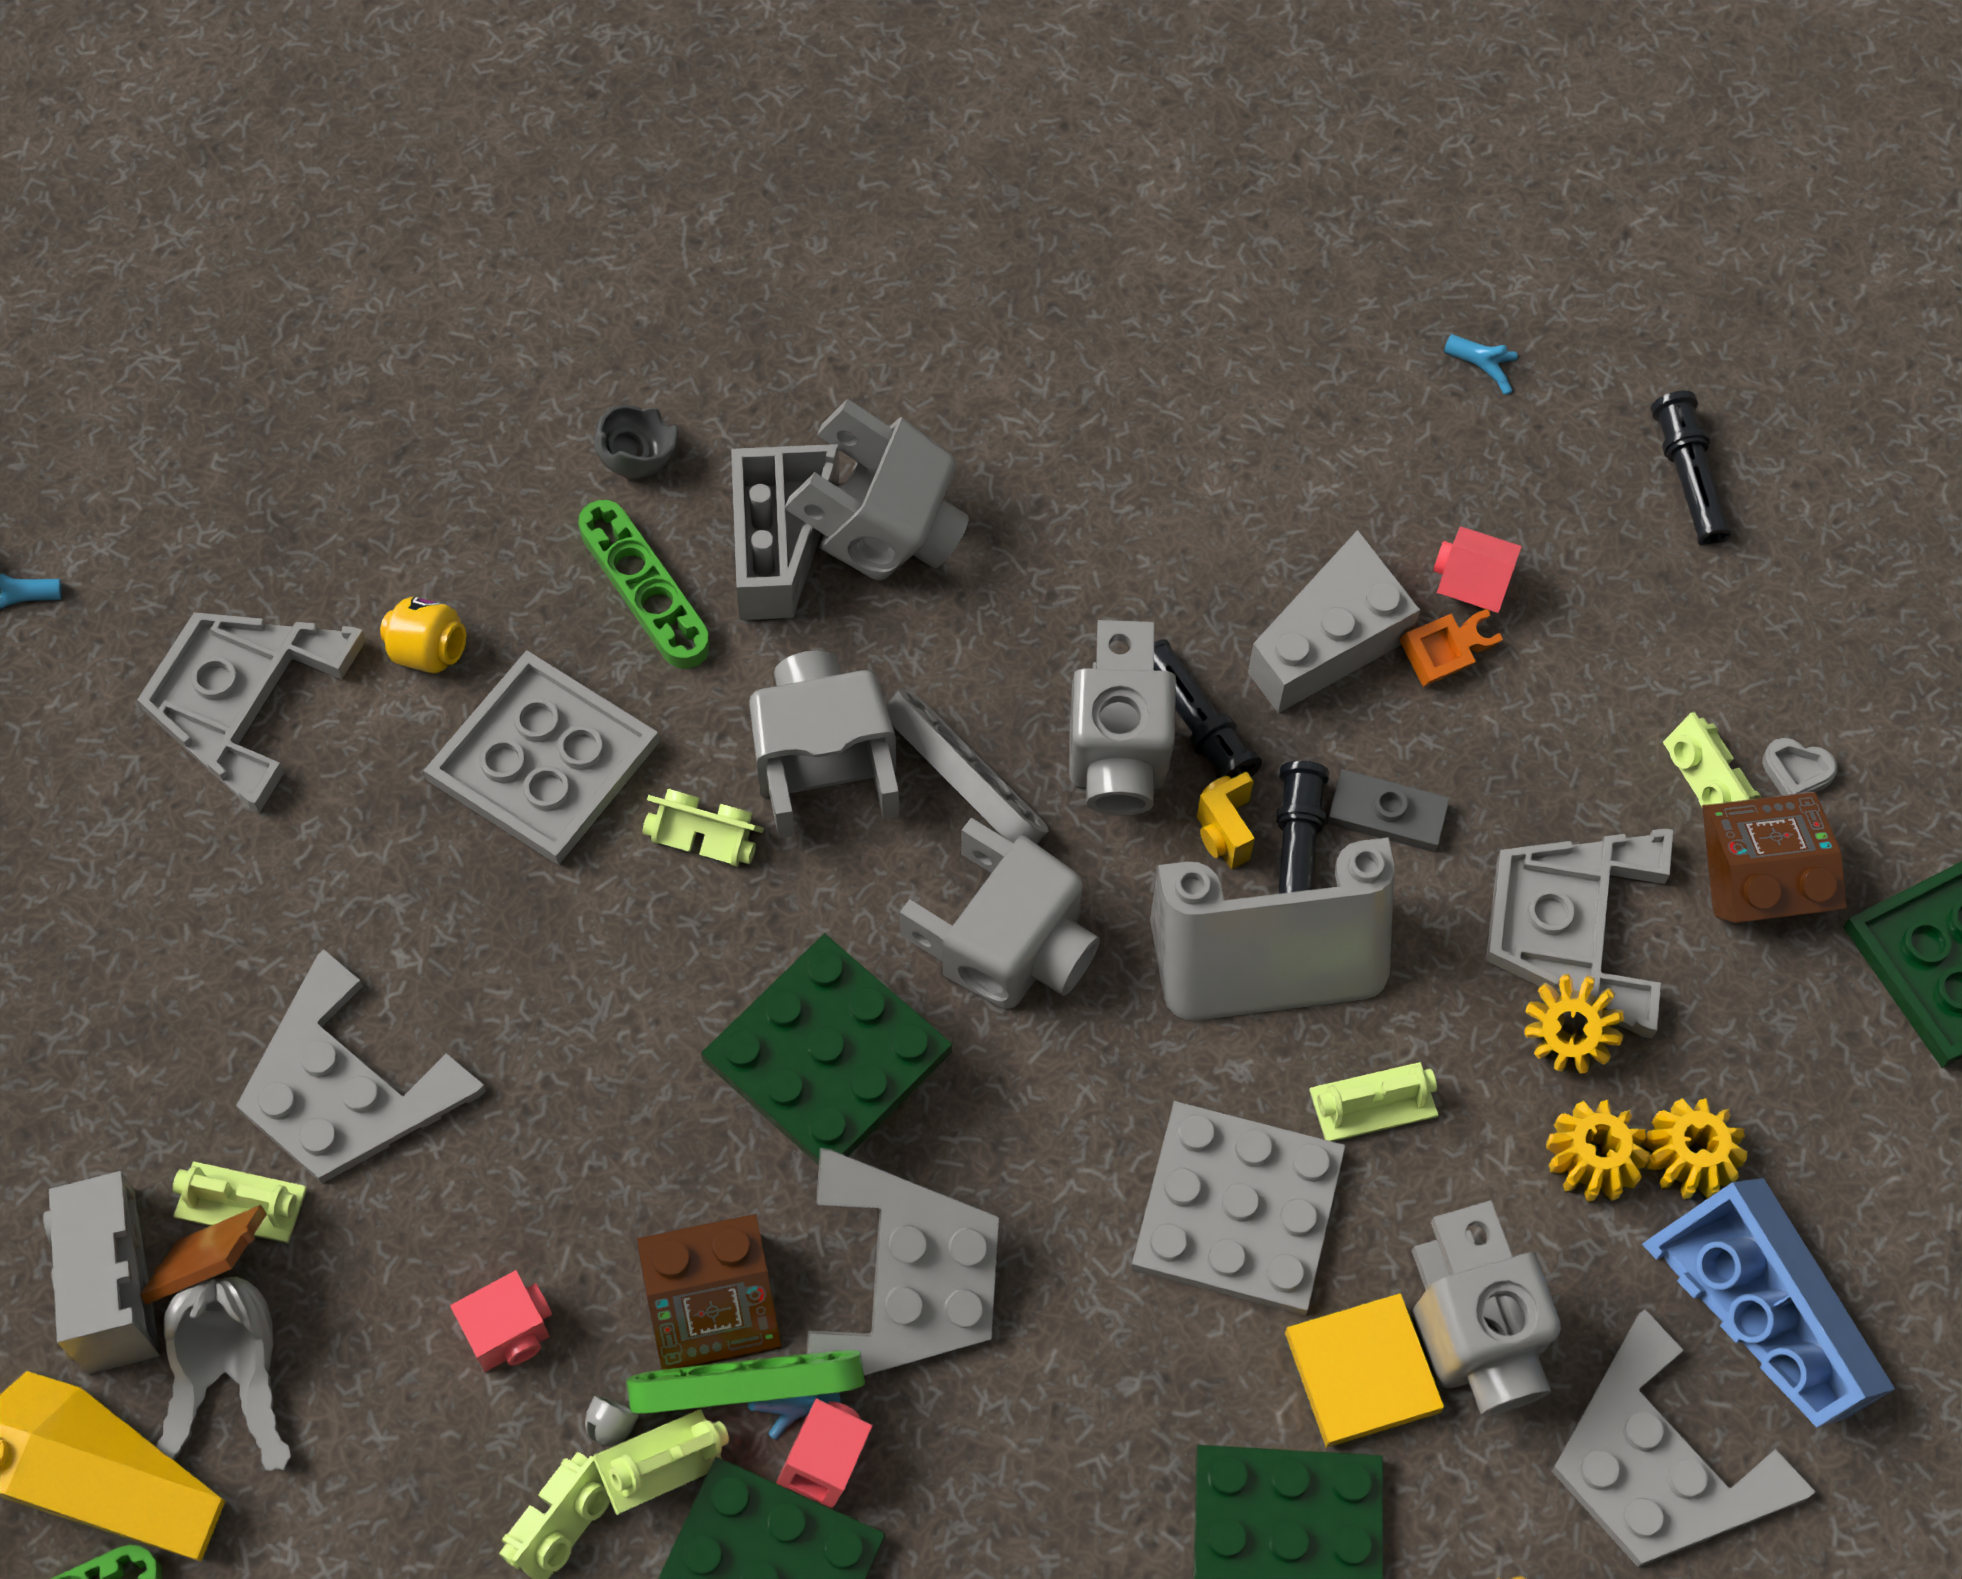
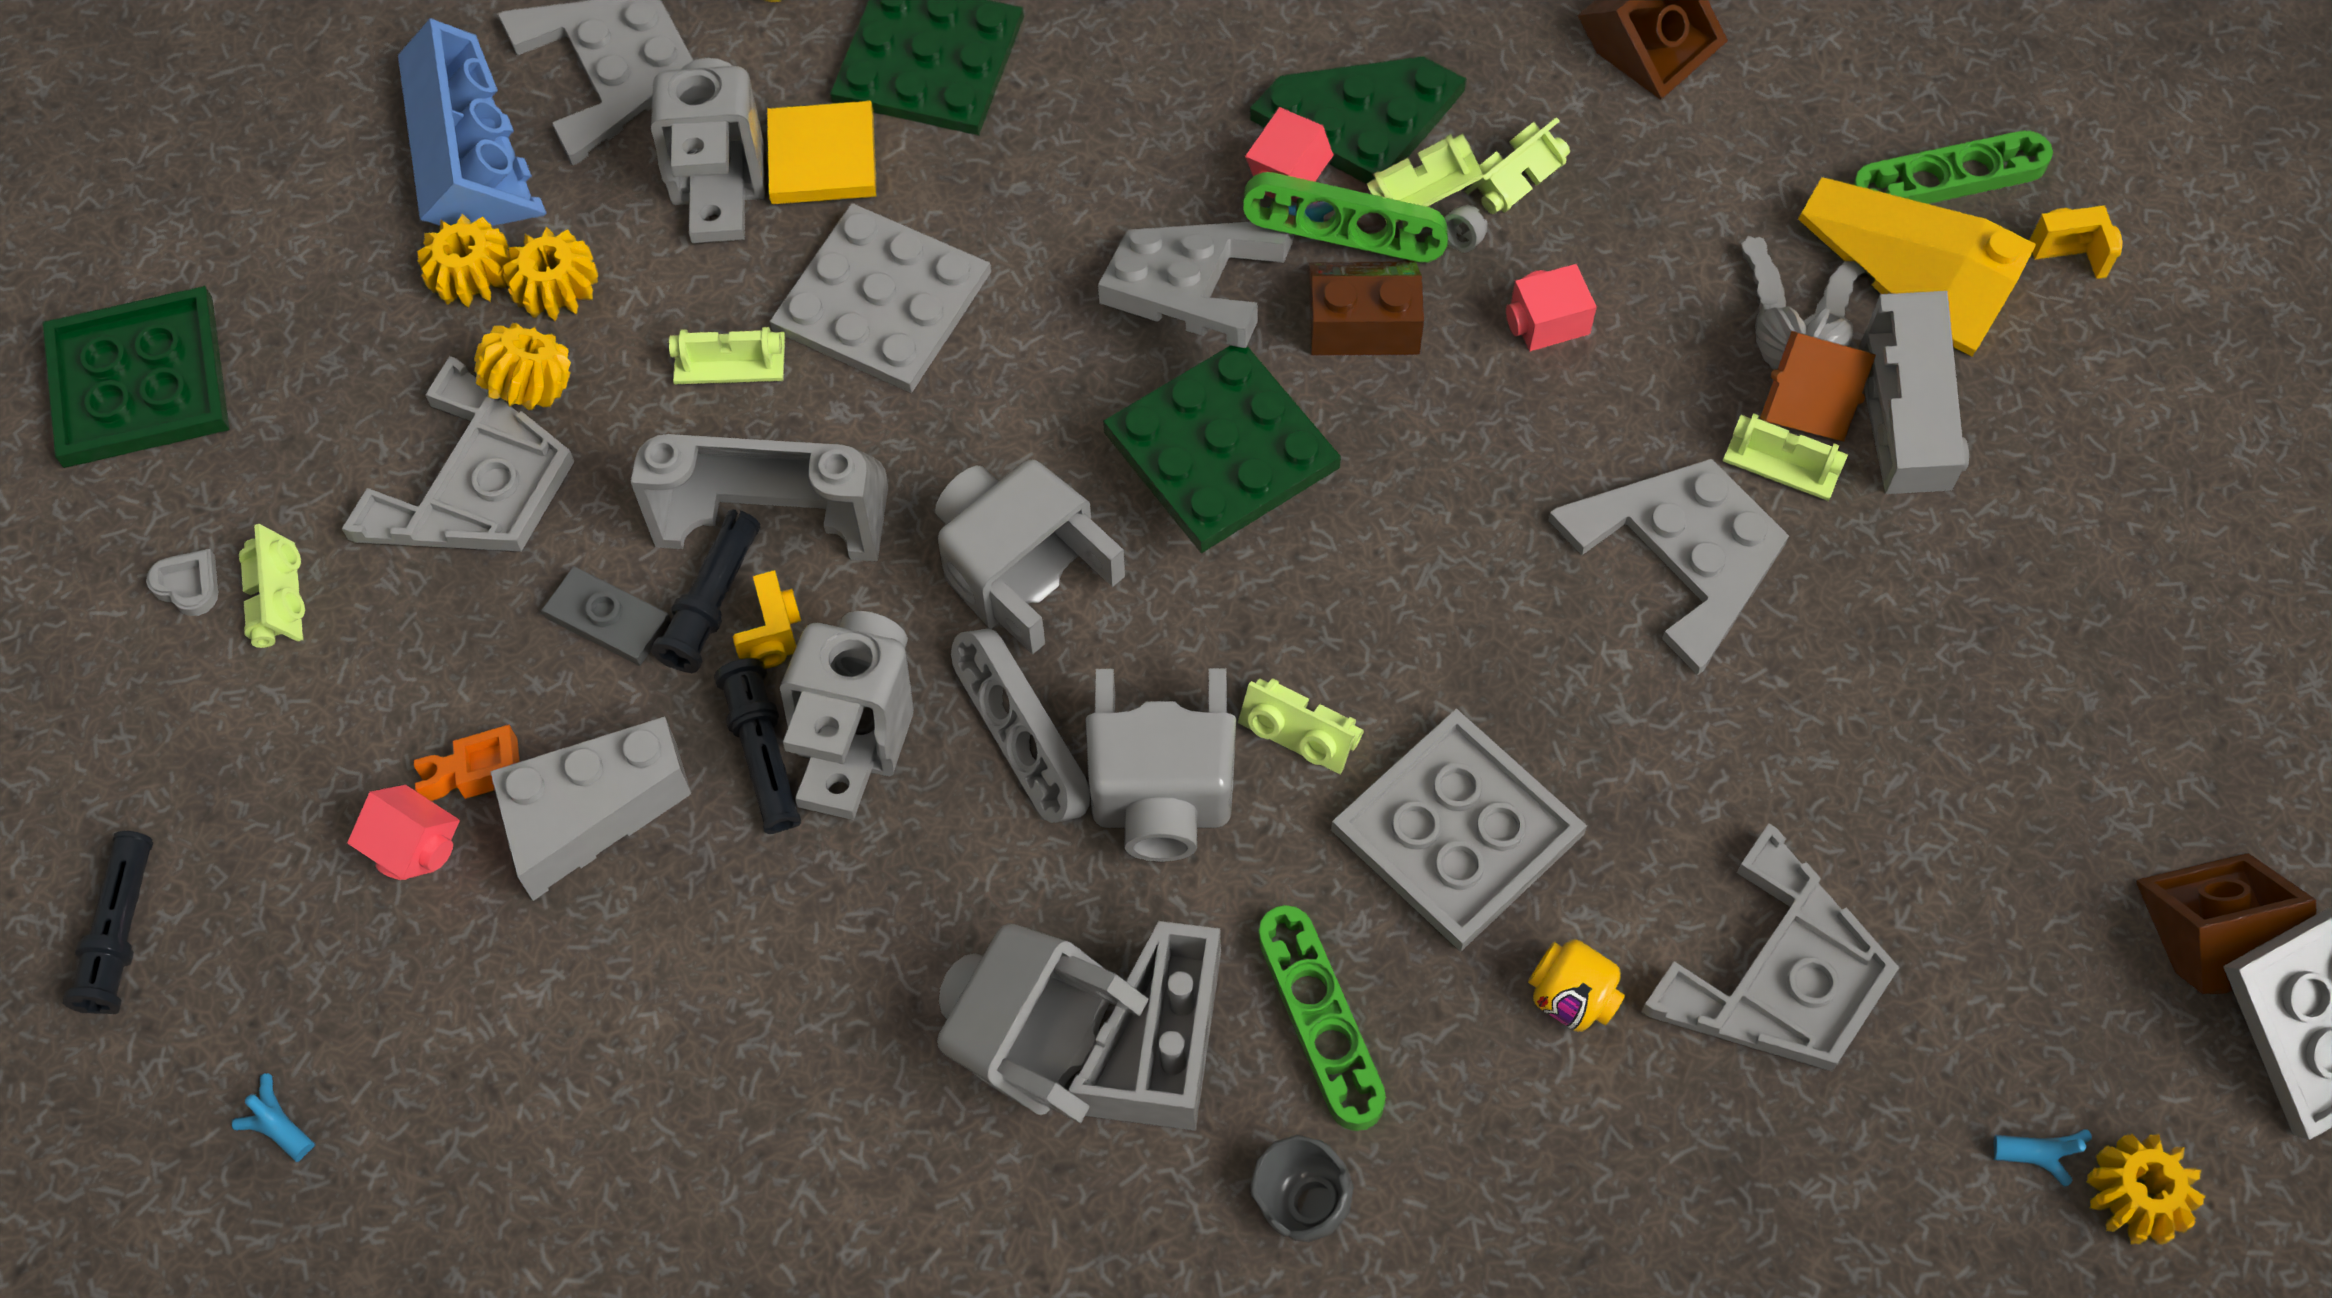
camera: 165 degrees left, 0 degrees up
(1772, 858) = (265, 466): reddish brown slope -> none

